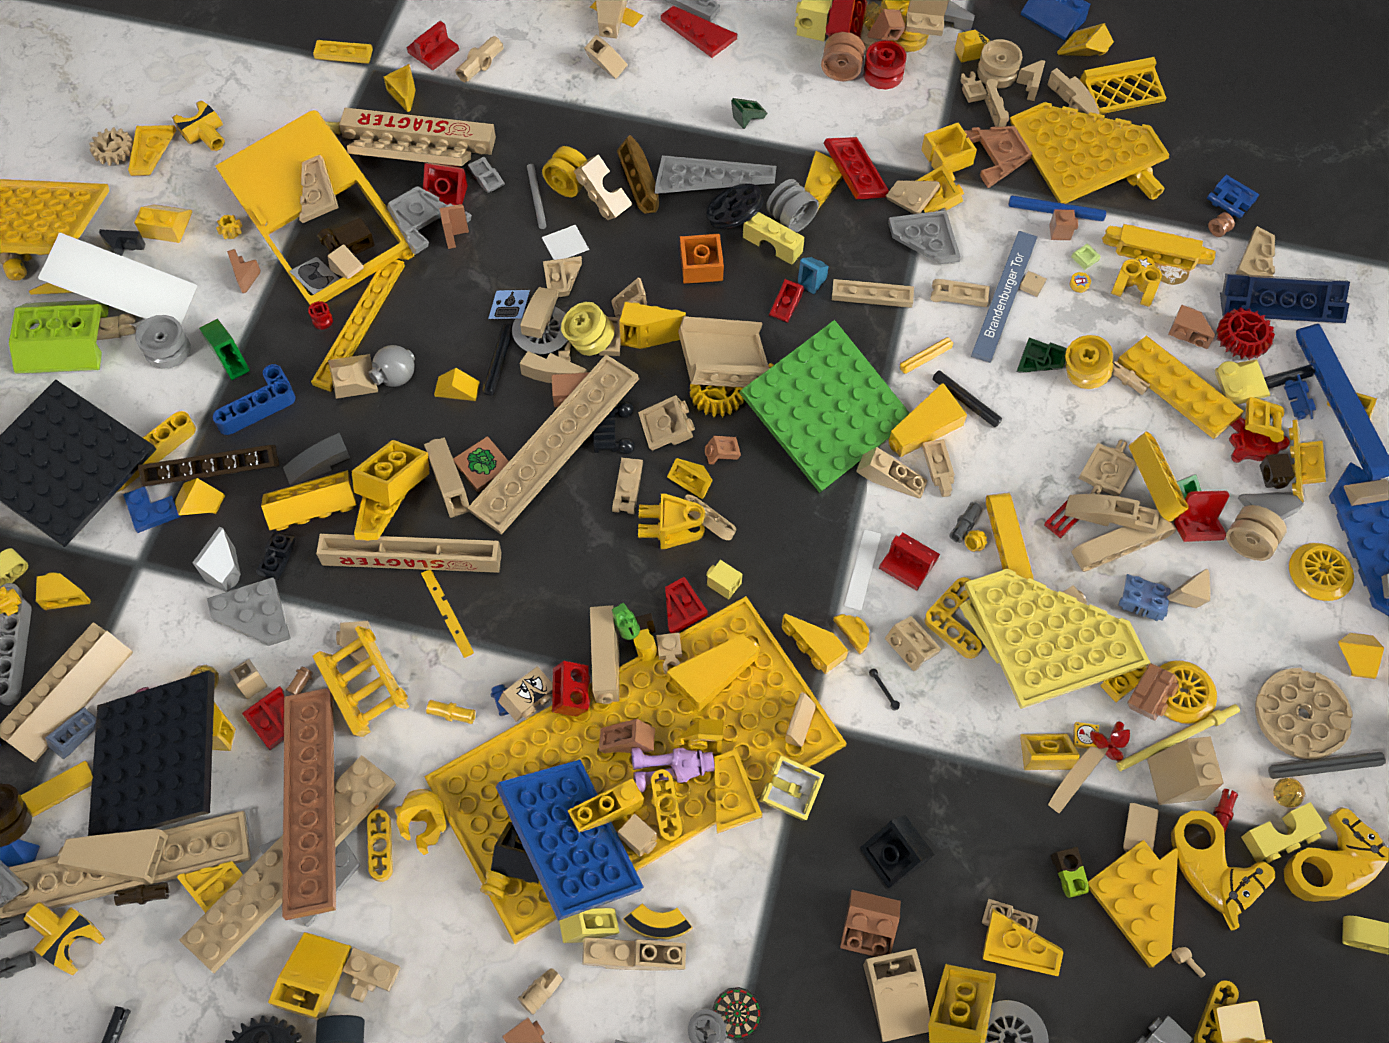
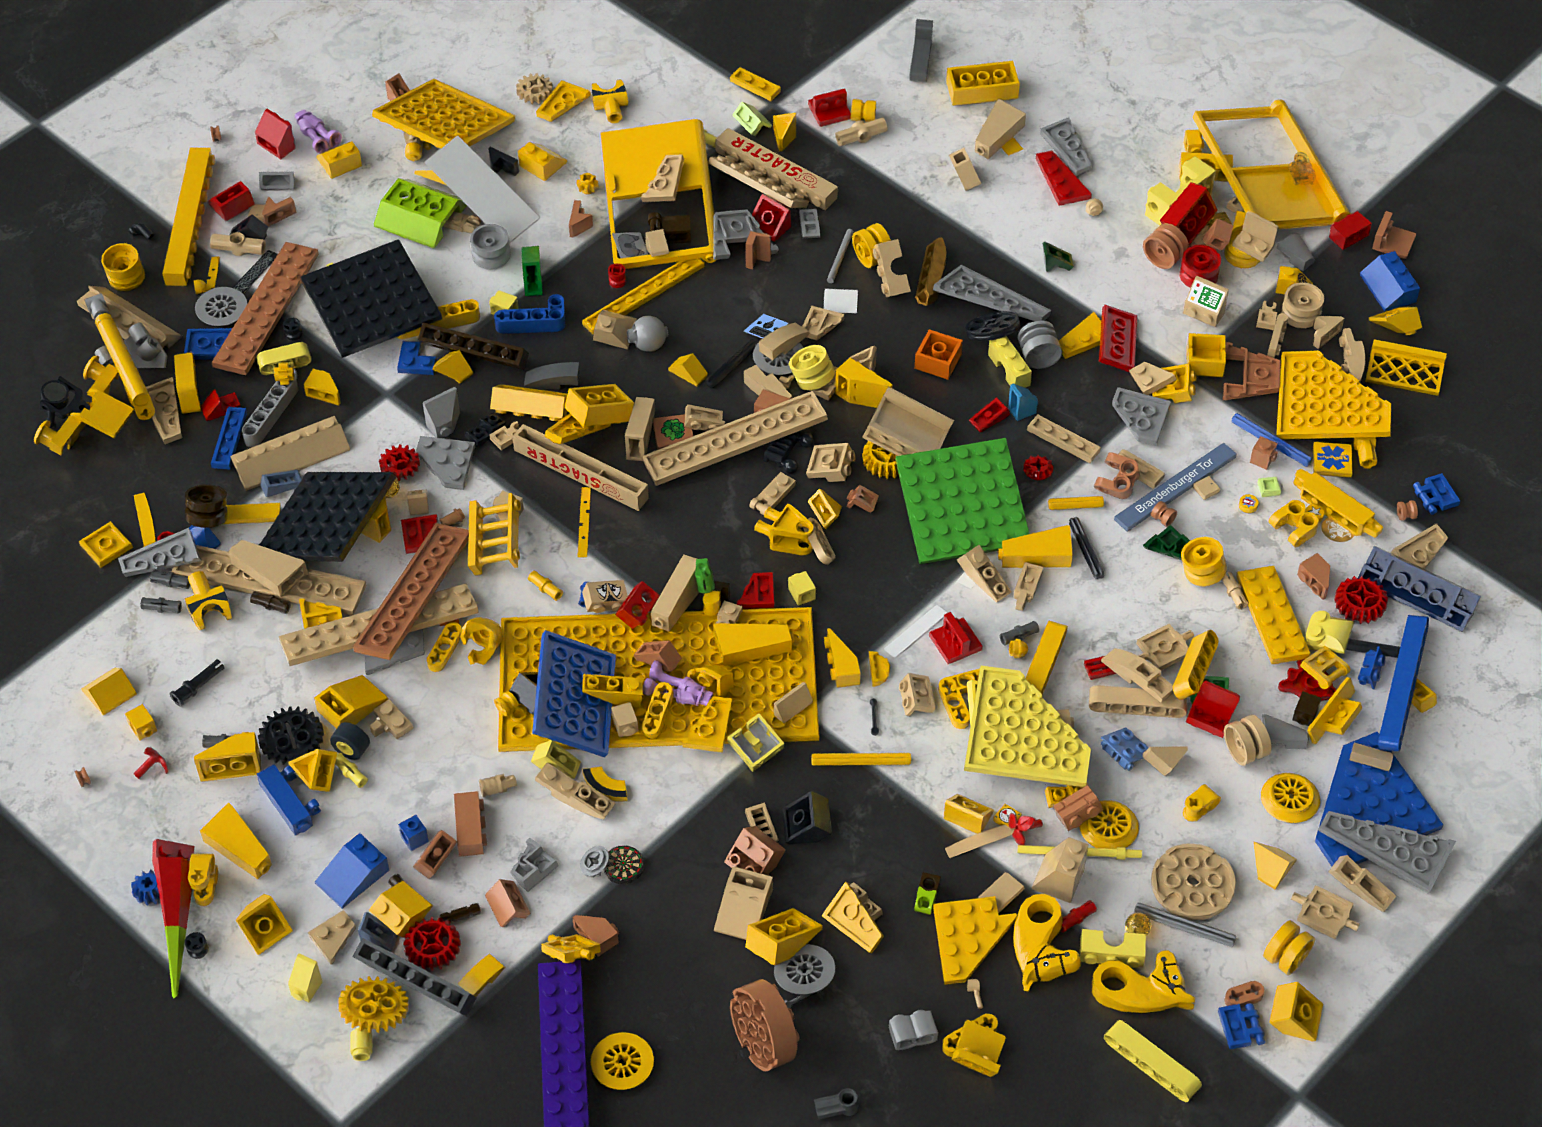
camera: 30 degrees right, 10 degrees down
(202, 643) = (399, 461): none -> red gear
(213, 399) = (502, 301): none -> light yellow brick
(303, 555) = (503, 437): none -> tan plate
(359, 89) = (750, 118): none -> yellowish green panel
(469, 36) = (863, 110): none -> yellow wheel
(507, 435) = (702, 418): none -> tan bracket
(748, 45) = (1094, 207): none -> tan plate
(841, 861) = (757, 809): none -> tan slope
(865, 341) = (1031, 470): none -> red gear
(903, 746) = (861, 759): none -> yellow axle
(914, 96) = (1206, 301): none -> slope
(948, 294) = (1122, 464): none -> nougat piece
(1011, 326) = (1163, 513): none -> nougat wheel
(1122, 203) = (1332, 459): none -> yellow tile
(1252, 622) = (1200, 803): none -> yellow piece

